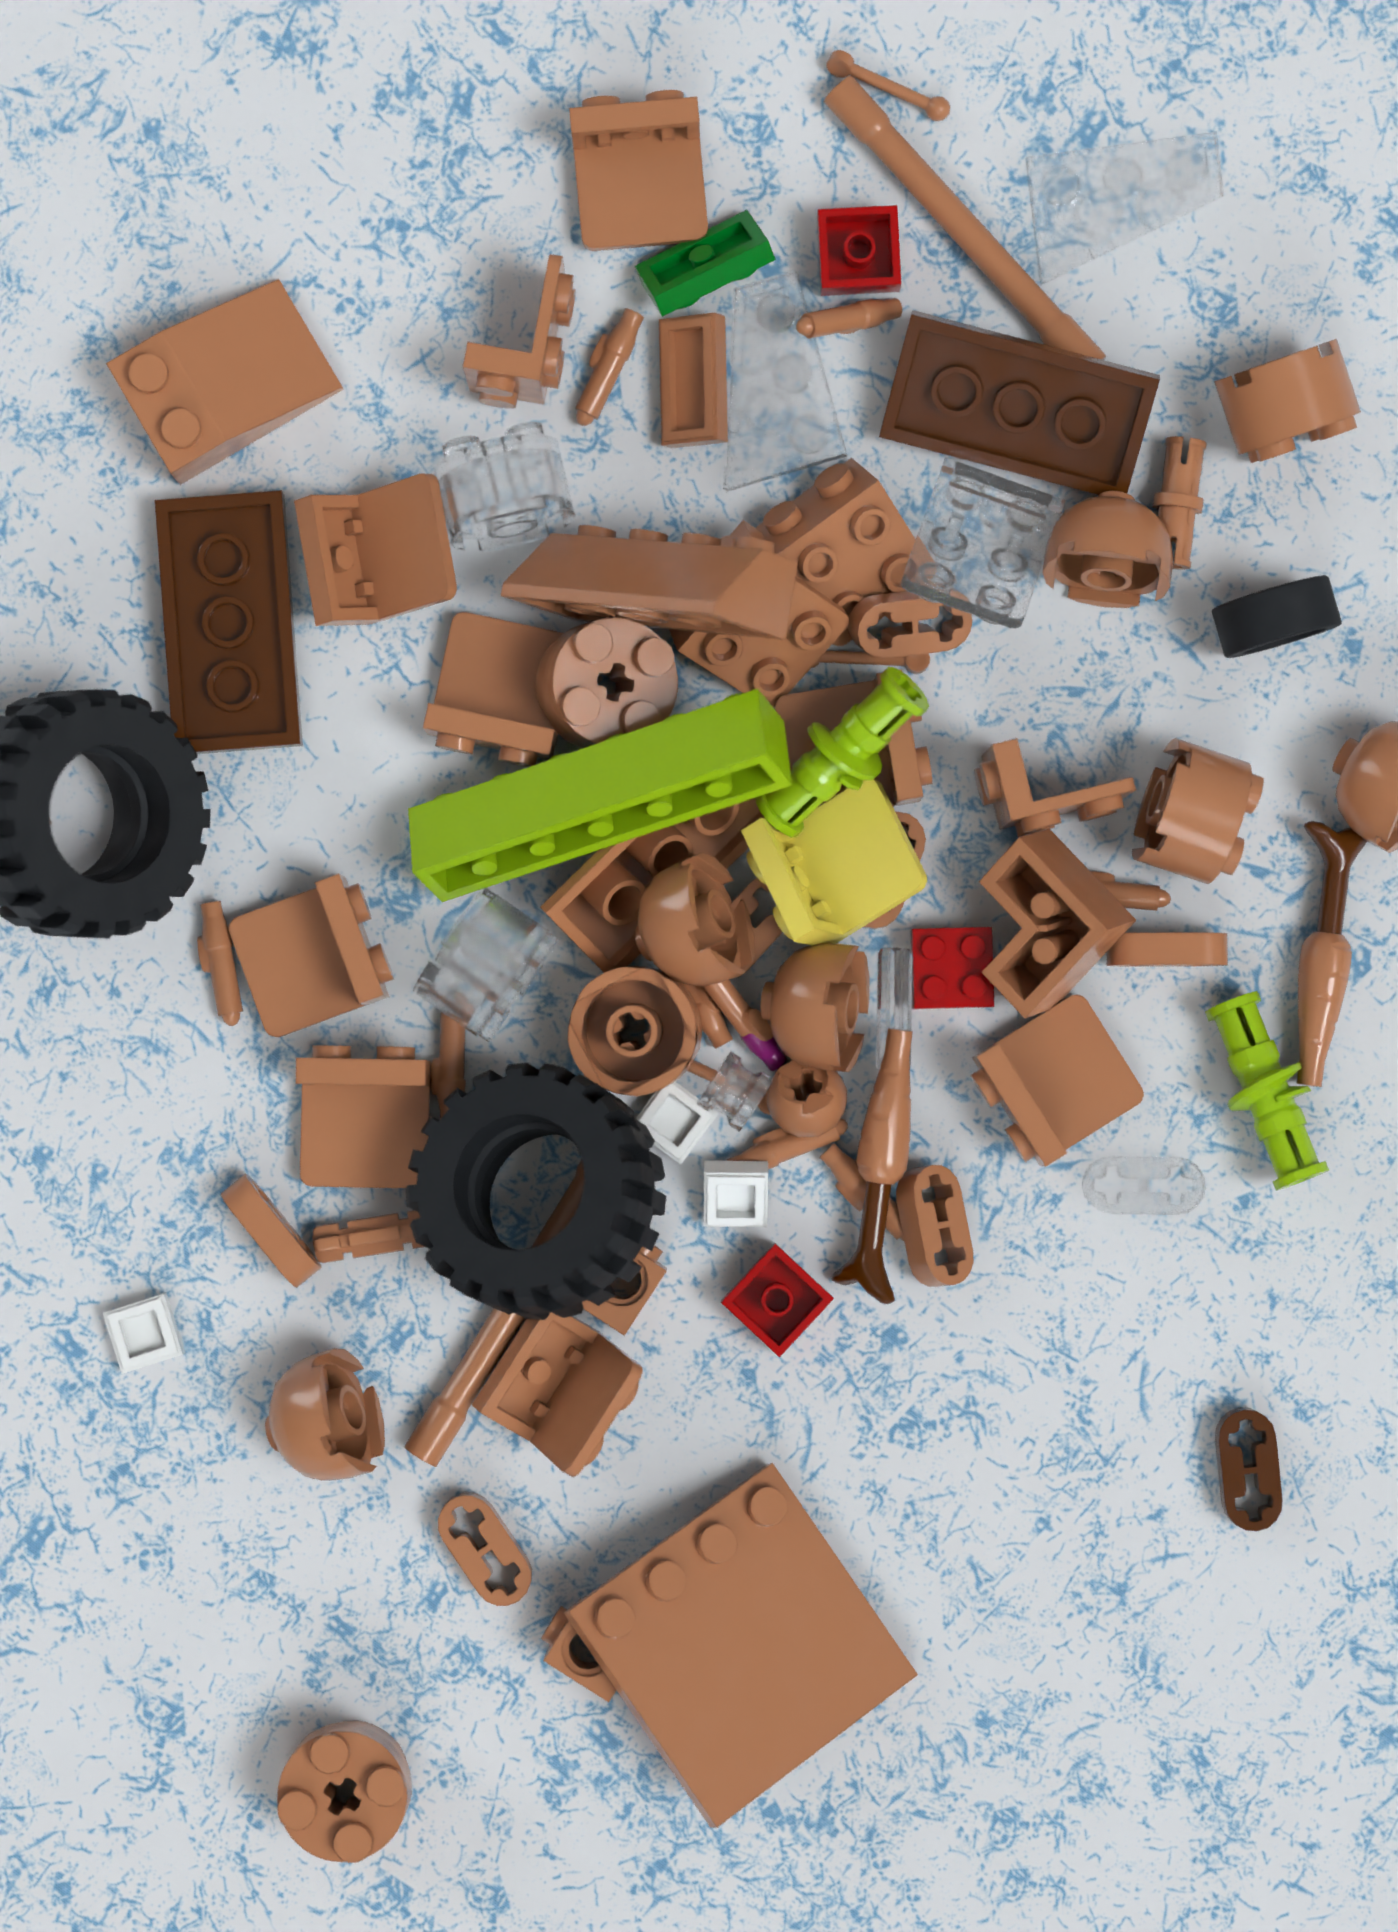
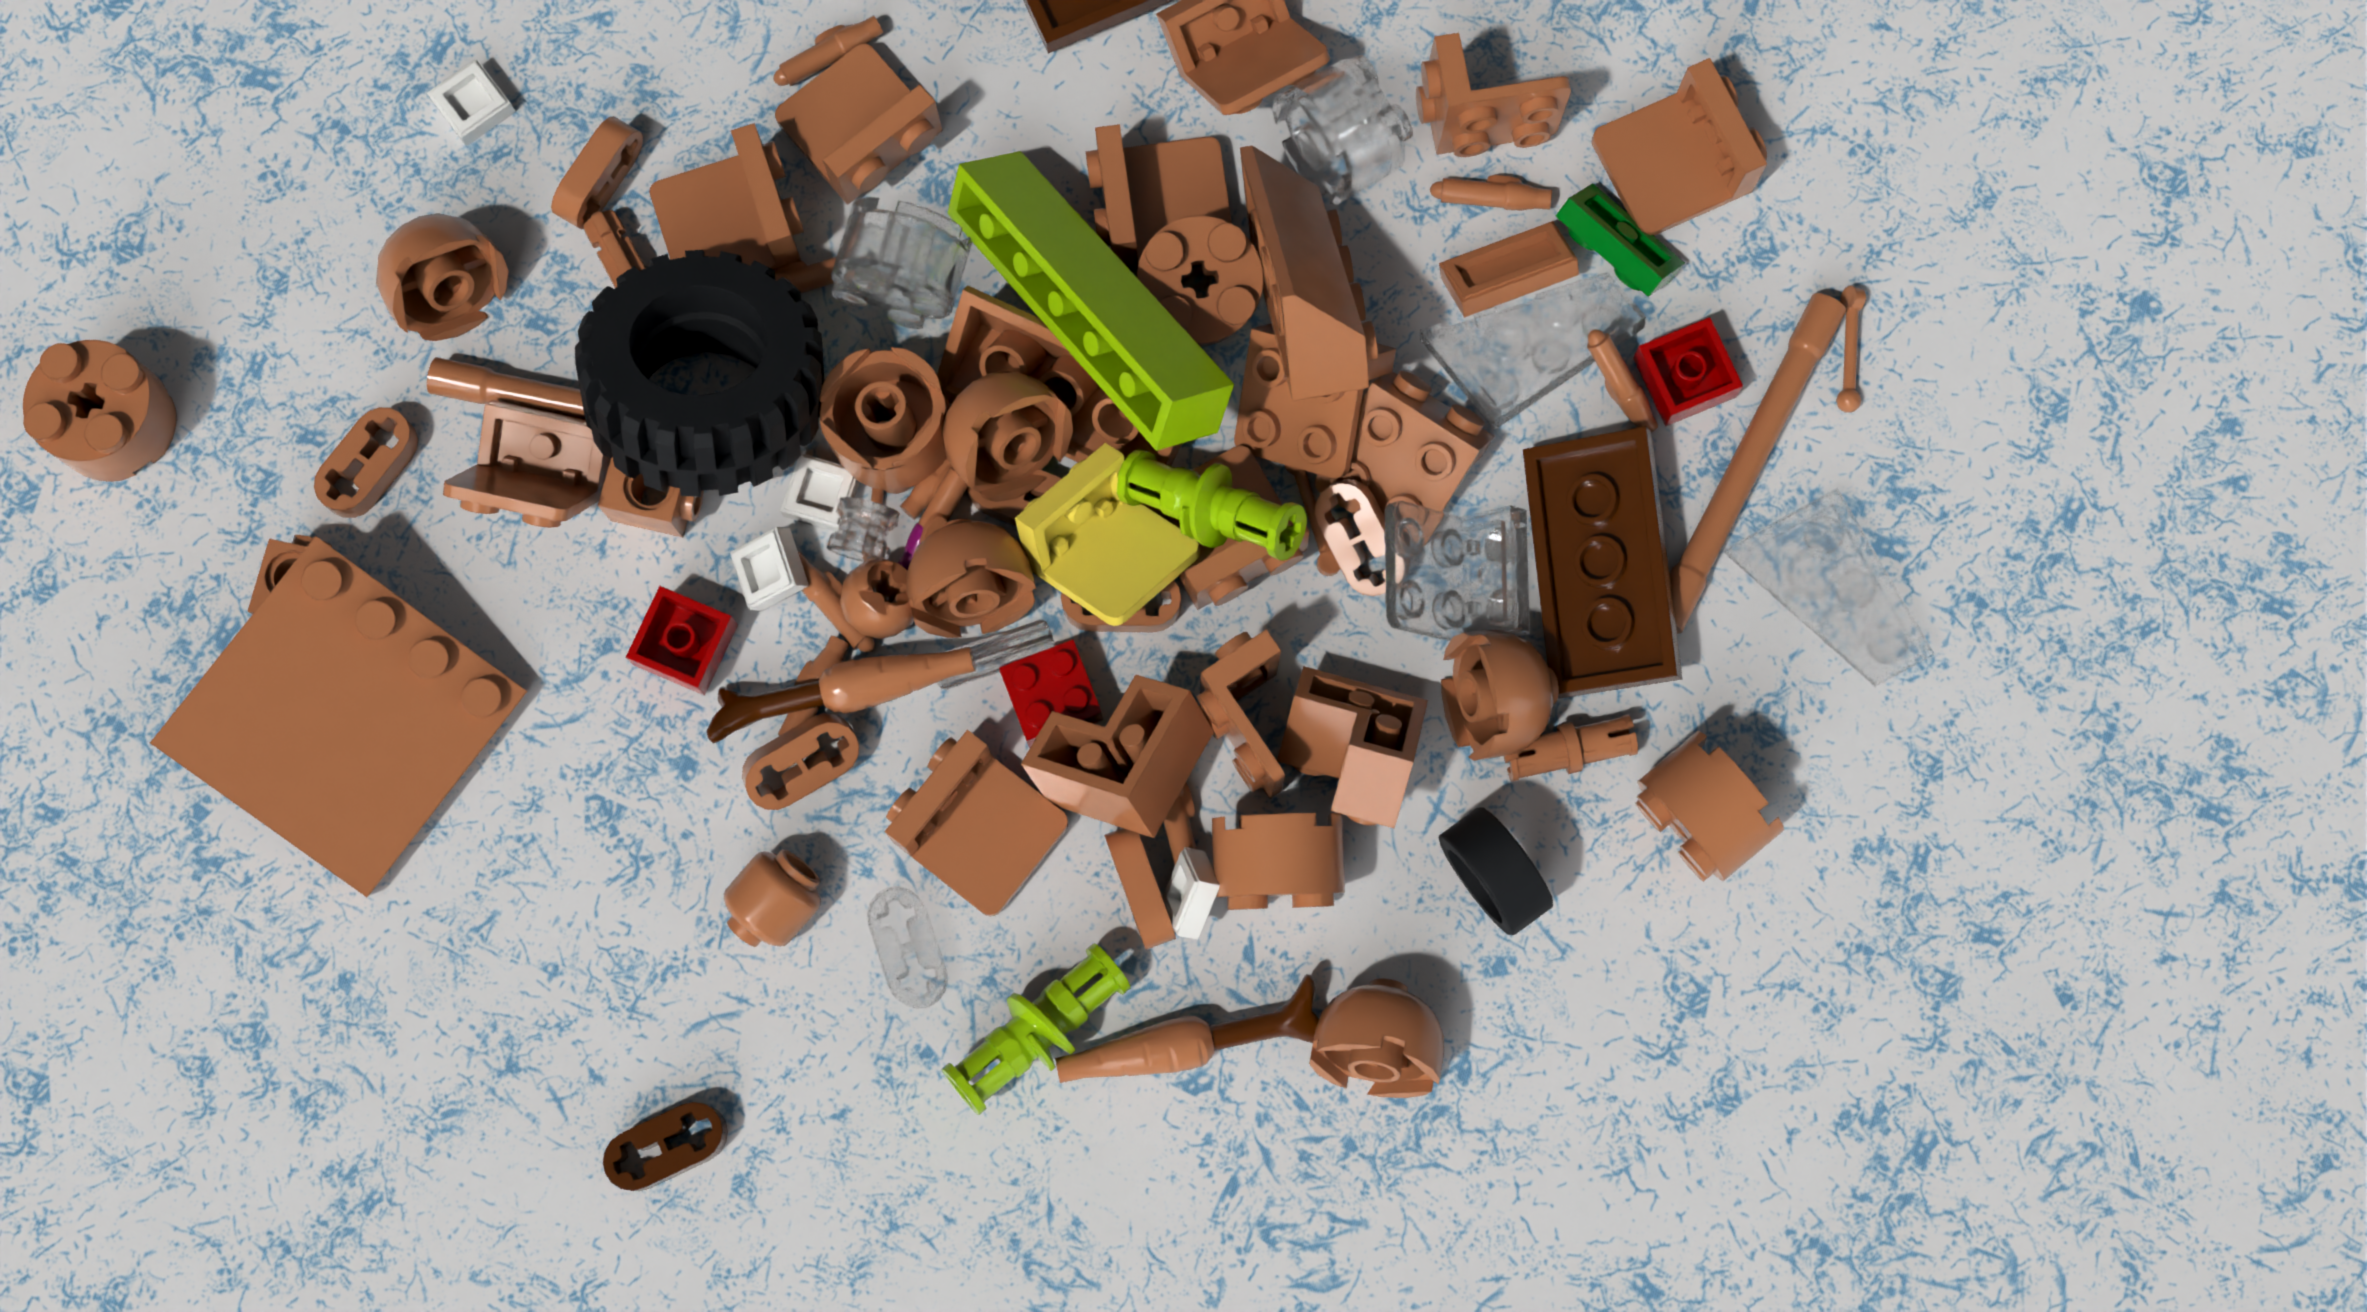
camera: 70 degrees right, 10 degrees down
(1057, 1294) = (772, 898): none -> nougat head
(1106, 693) = (1354, 735): none -> nougat brick
(1193, 904) = (1190, 892): none -> white tile

